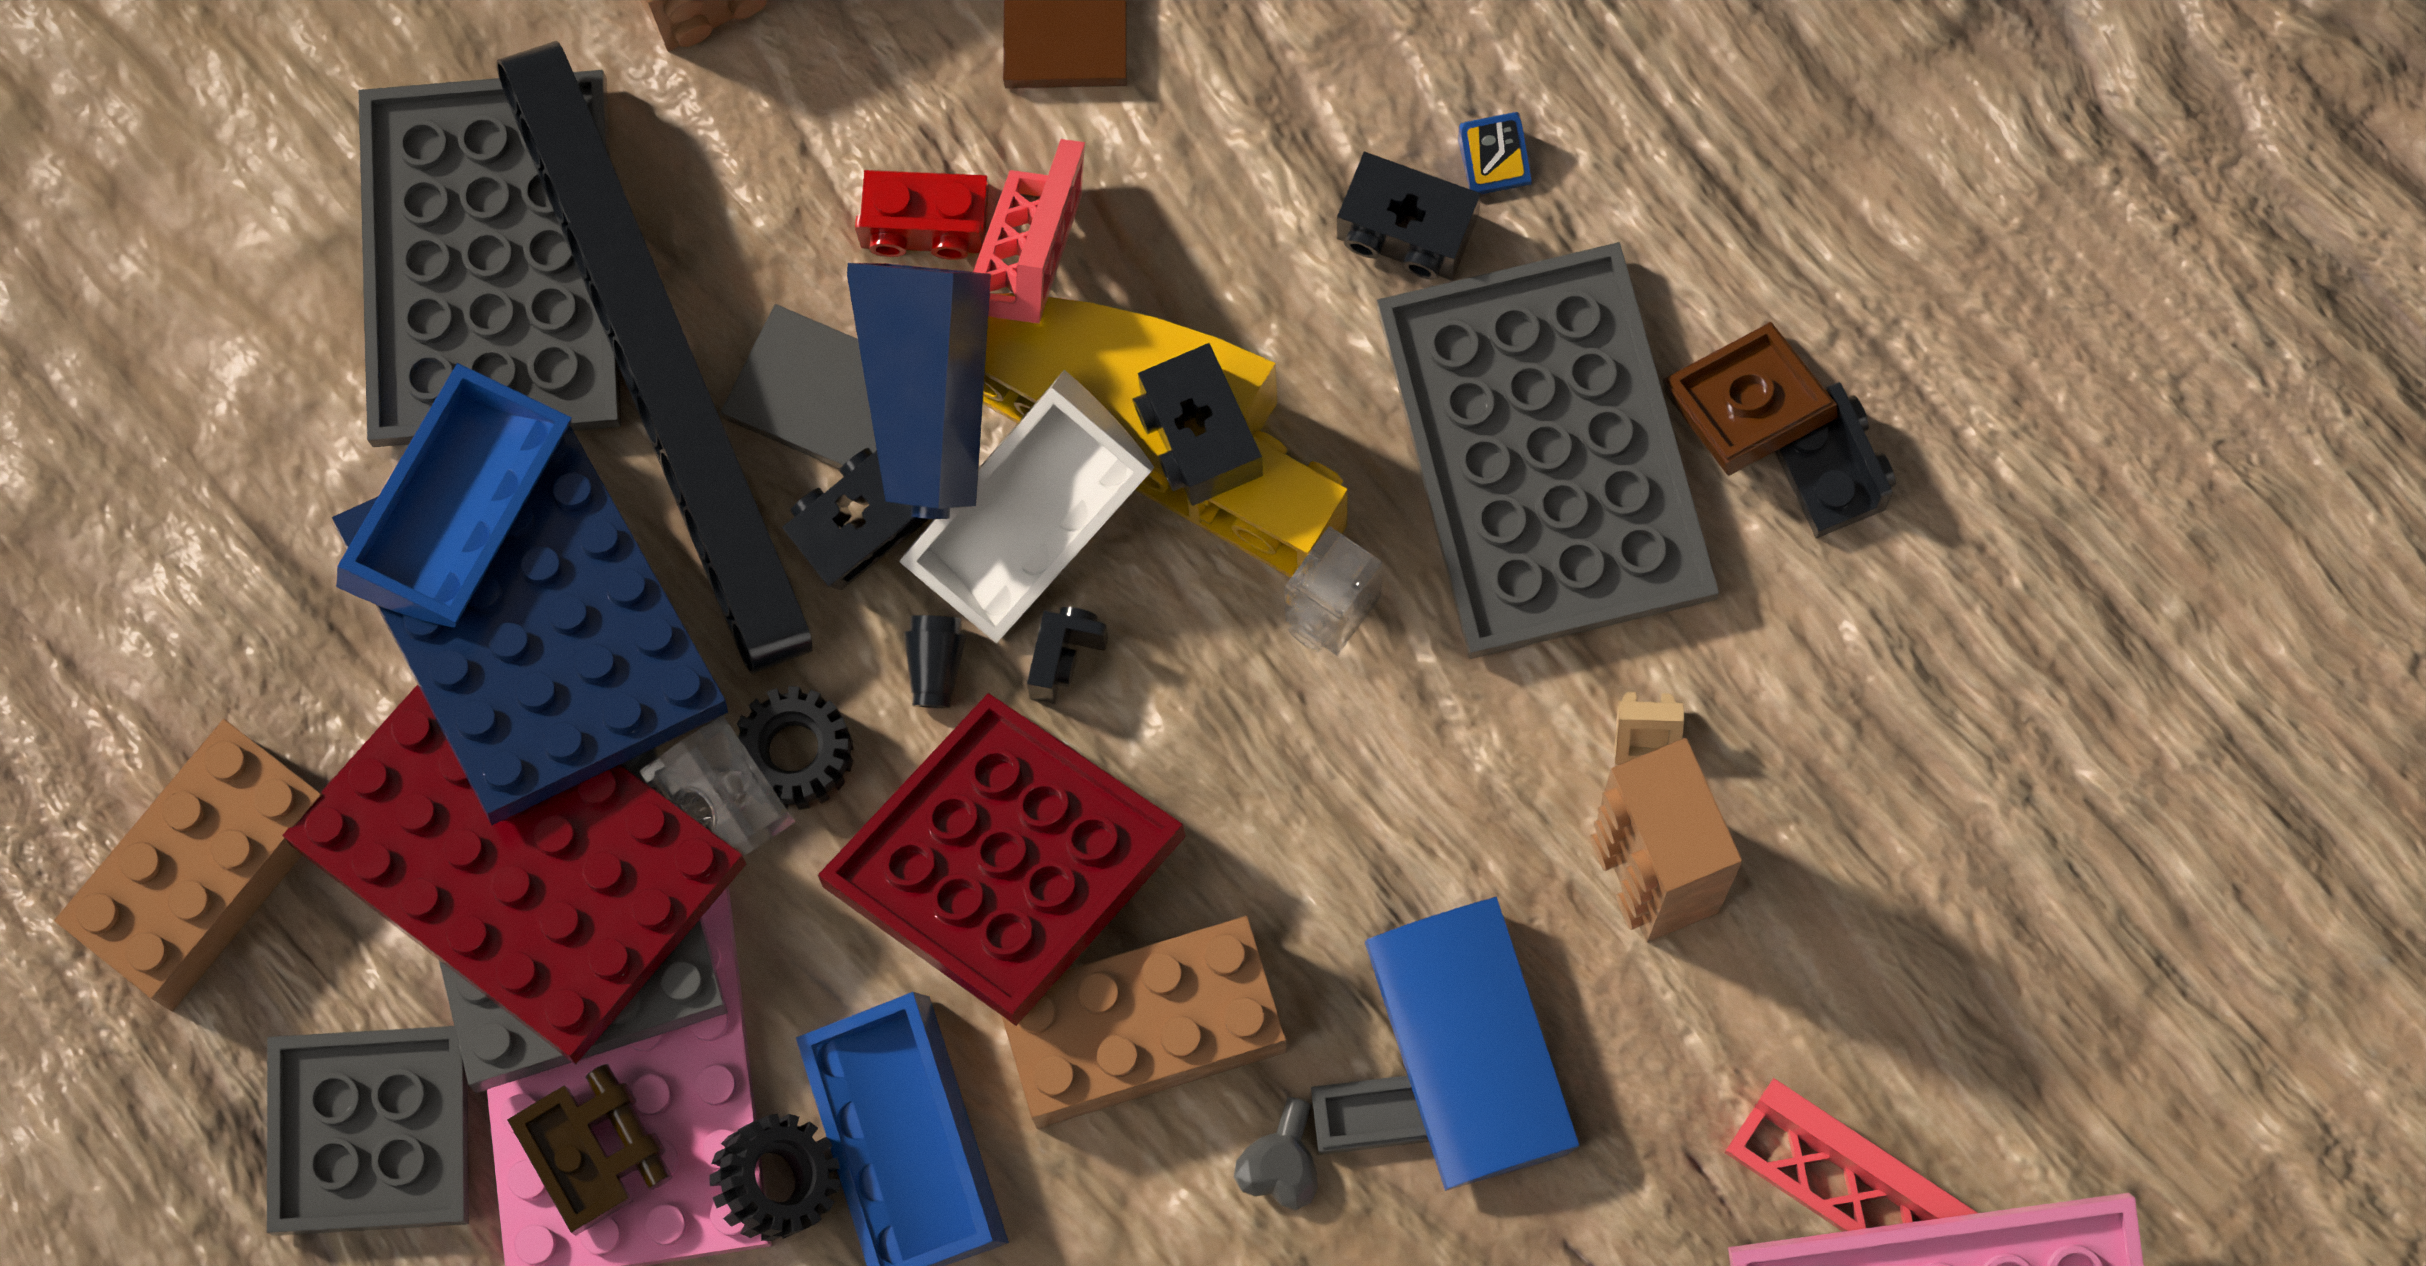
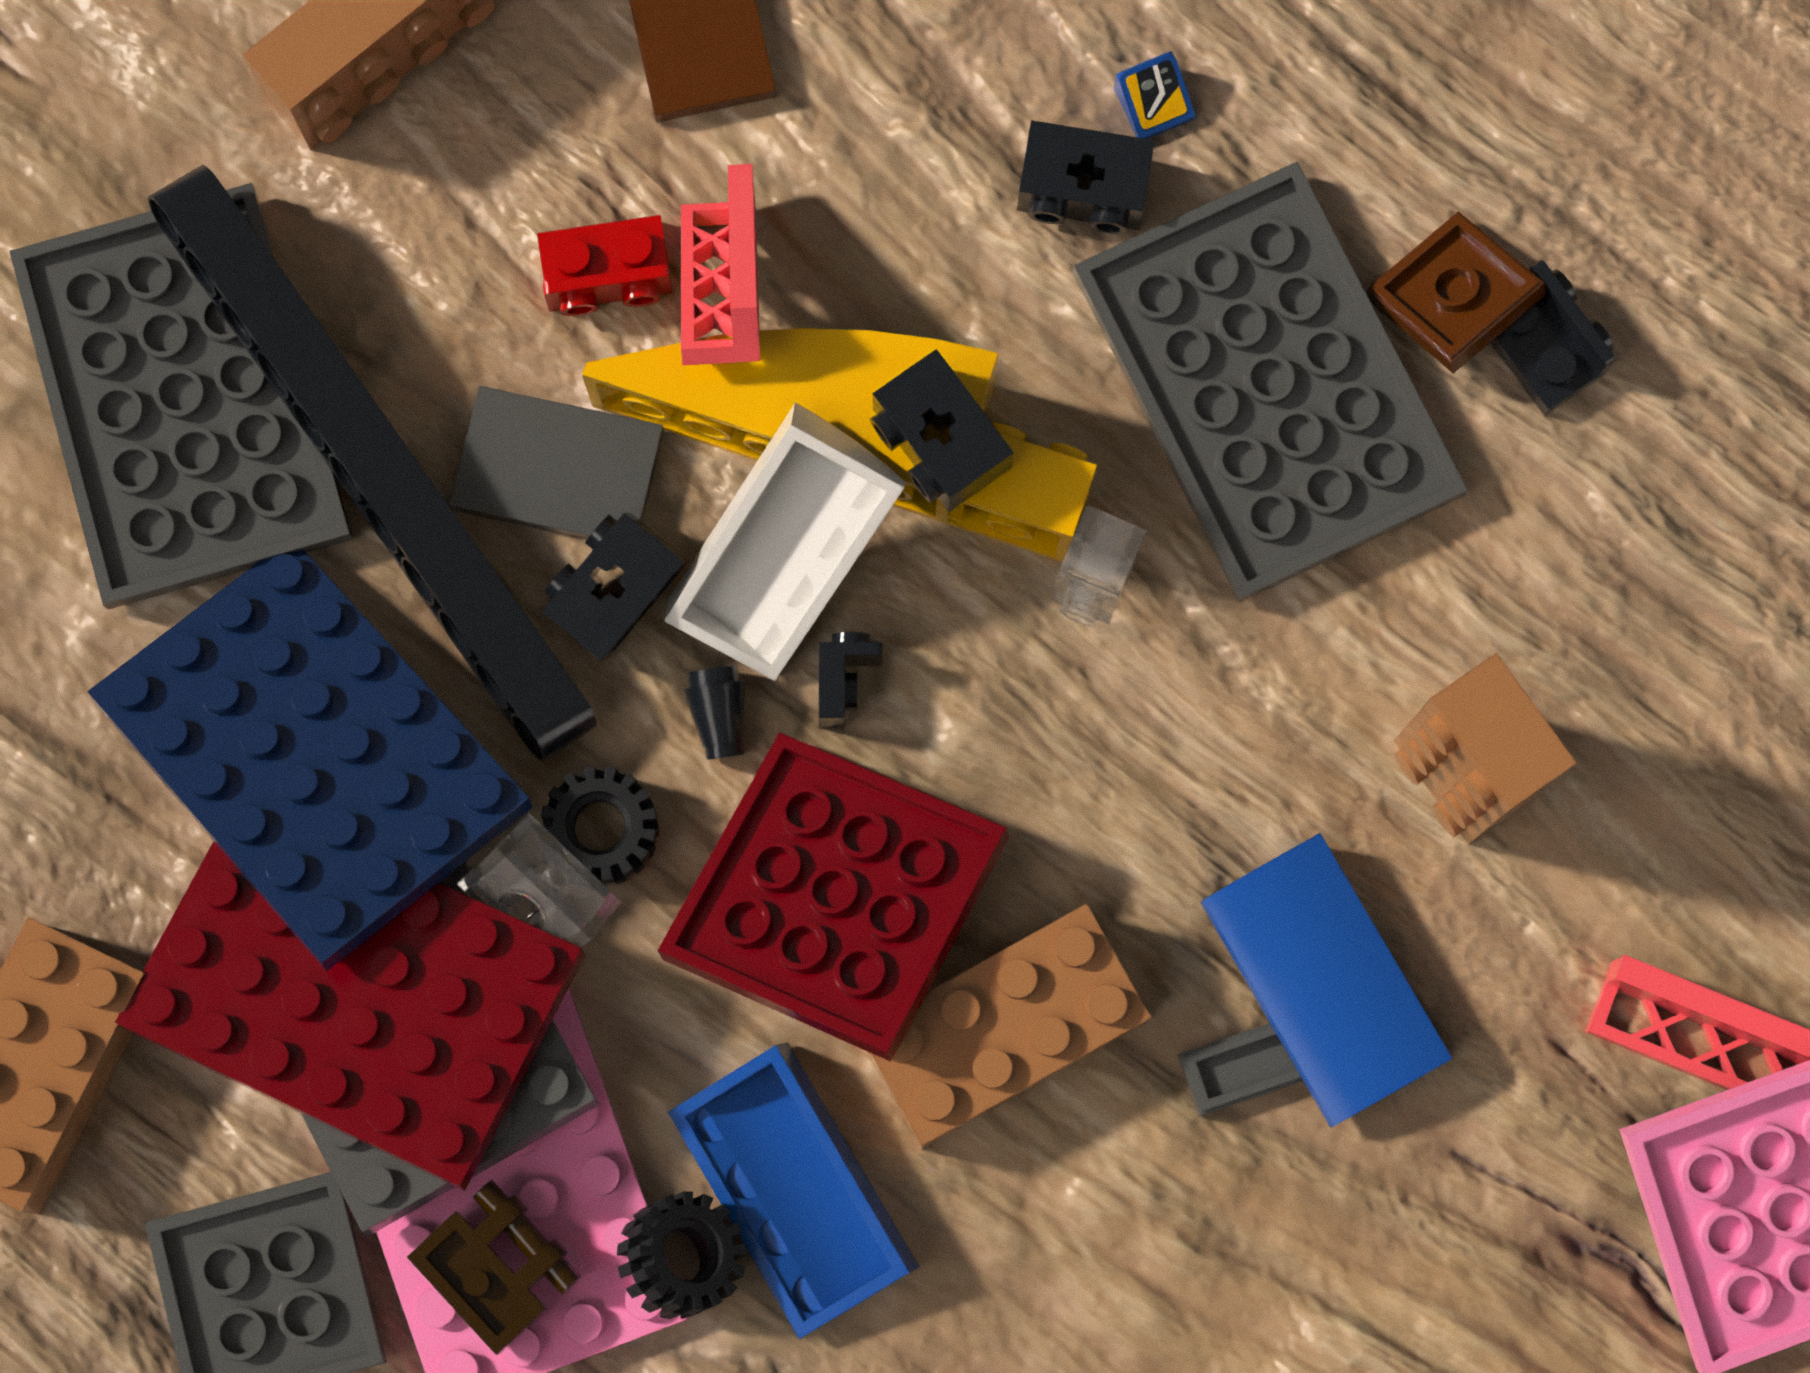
camera: 20 degrees left, 5 degrees up
(451, 499) = (208, 651): blue slope -> none
(923, 379) = (659, 438): dark blue slope -> none
(1280, 1161) = (1165, 1132): dark grey rock -> none
(1646, 726) = (1429, 639): tan tile -> none

